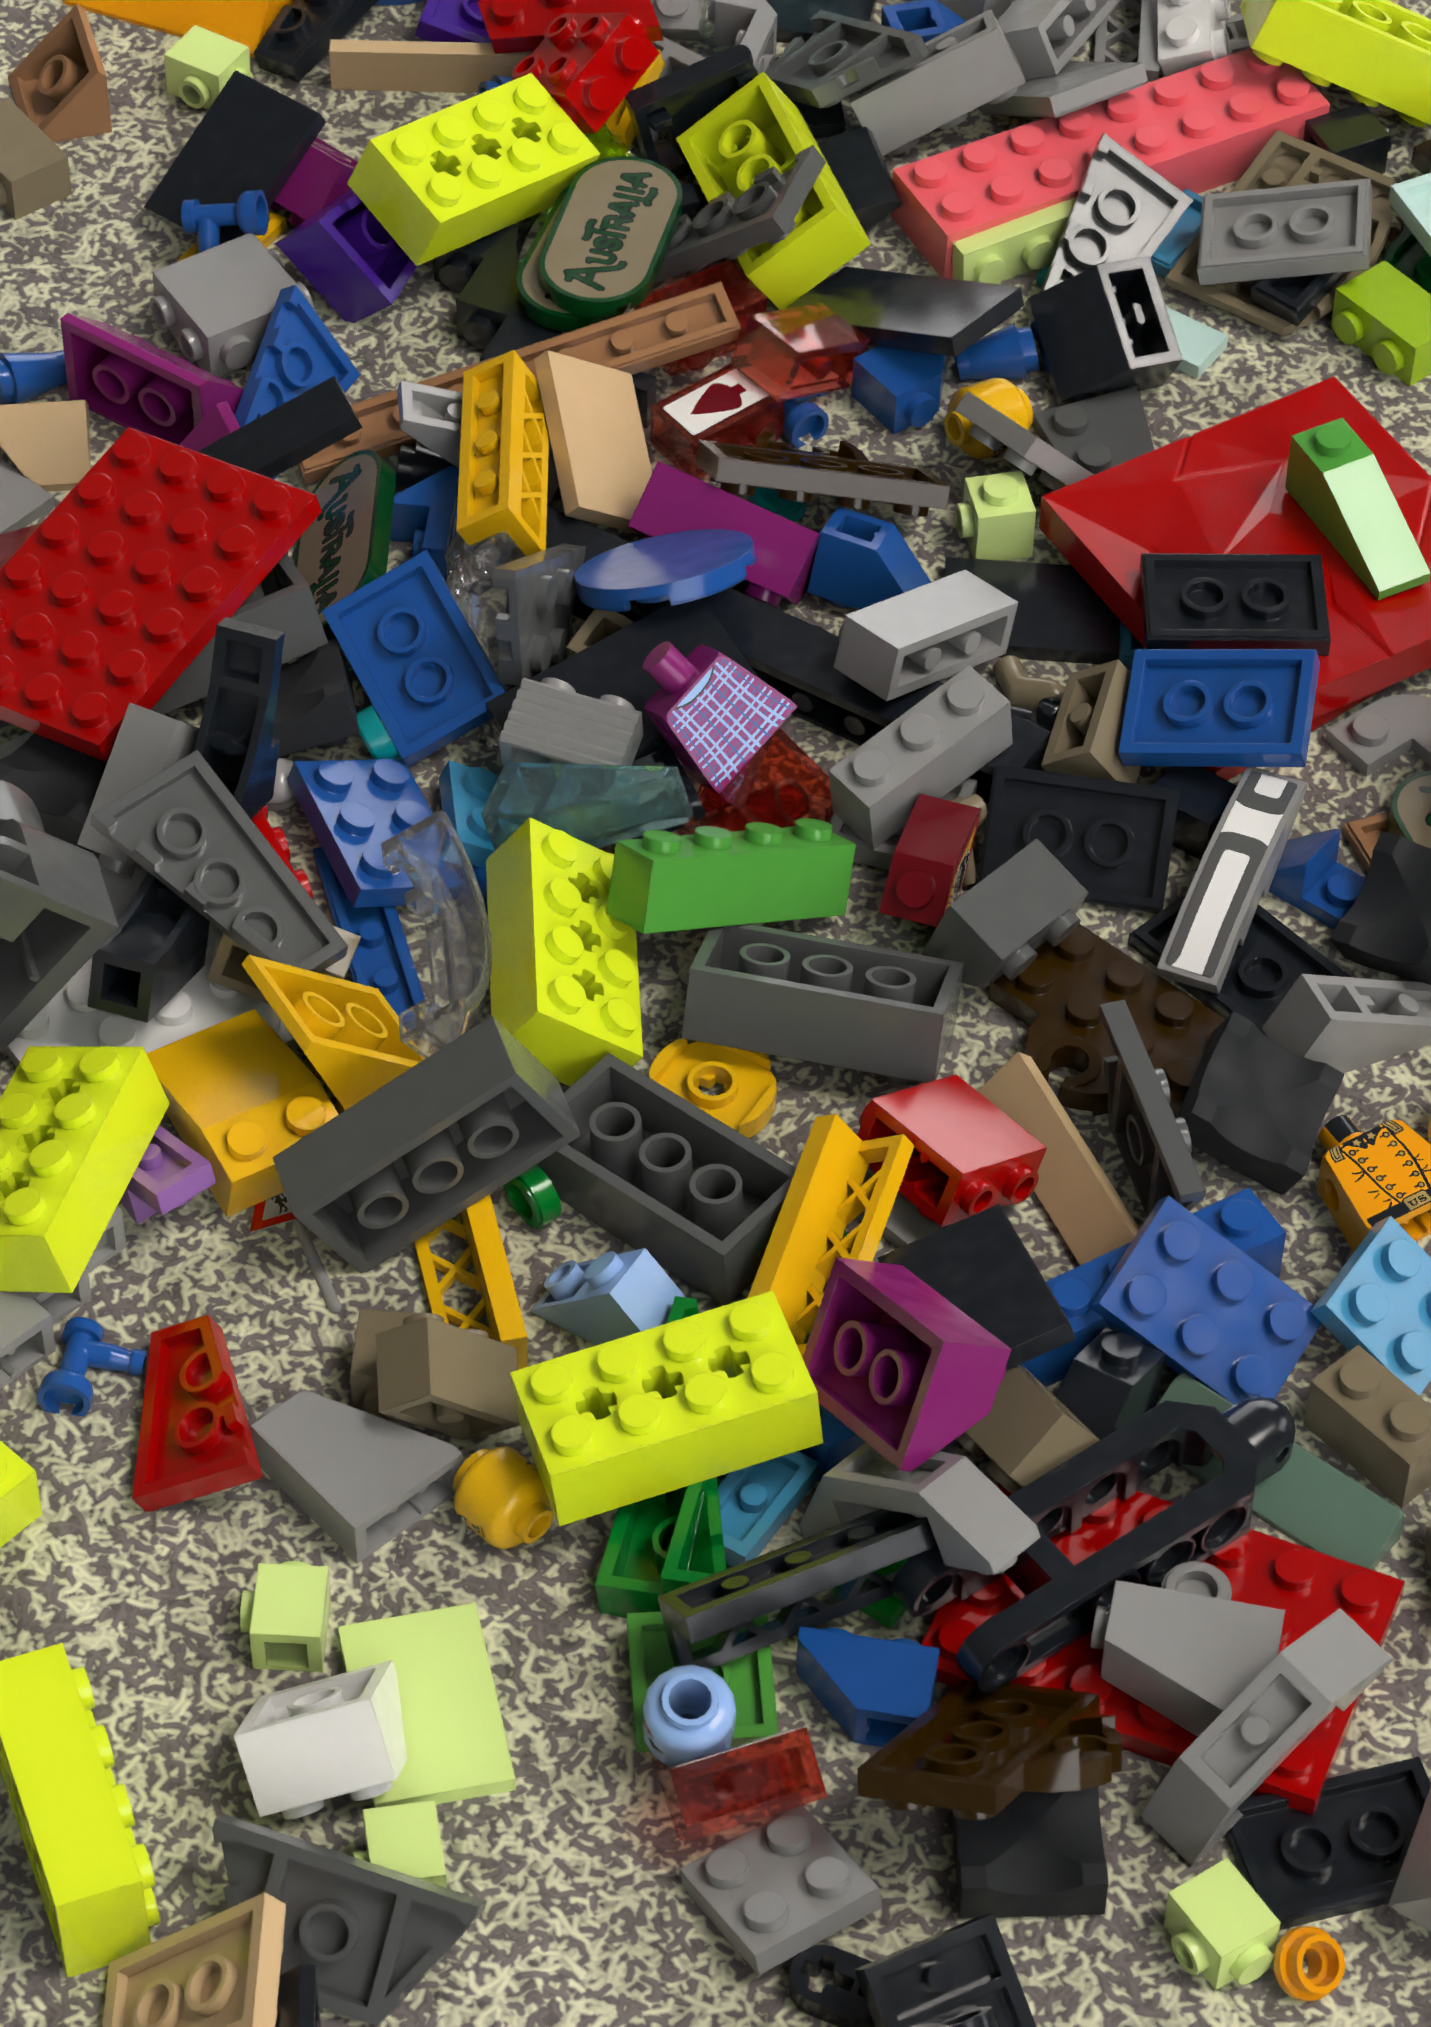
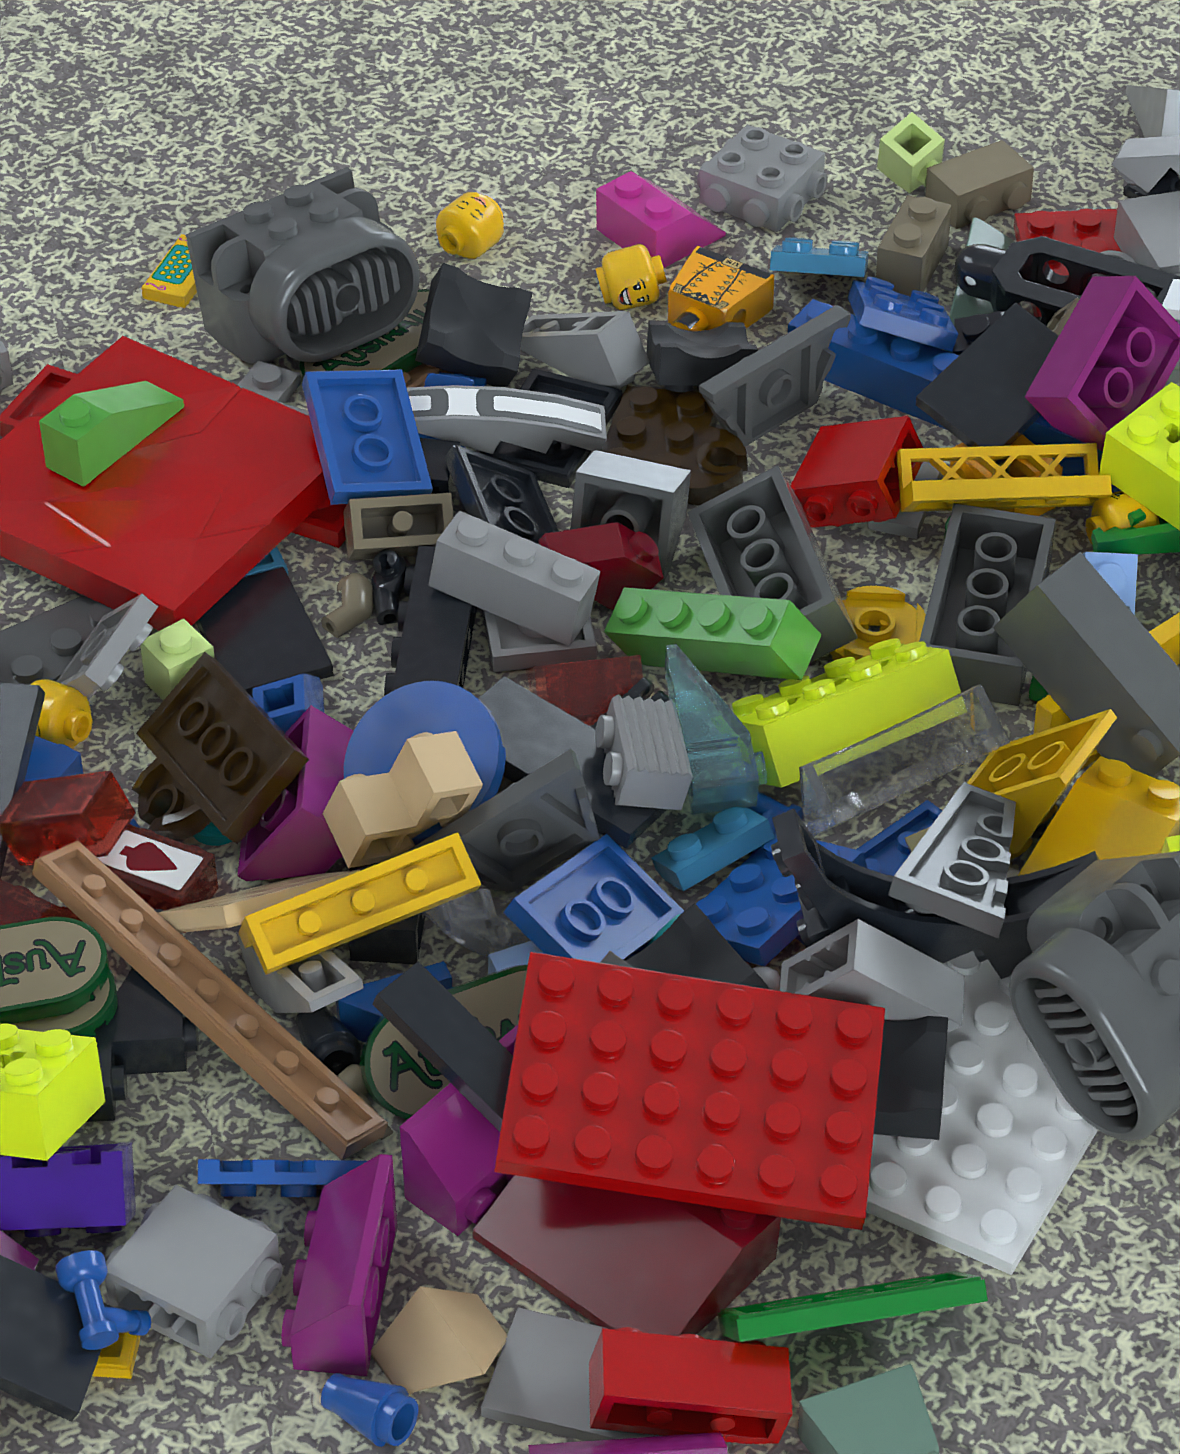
camera: 115 degrees left, 5 degrees down
(609, 517) = (382, 812): none -> tan brick
(711, 711) = (563, 677): magenta torso -> none
(925, 634) = (375, 623): light grey brick -> none
(1070, 1178) = (848, 403): tan tile -> none
(1234, 601) = (243, 467): black tile -> none

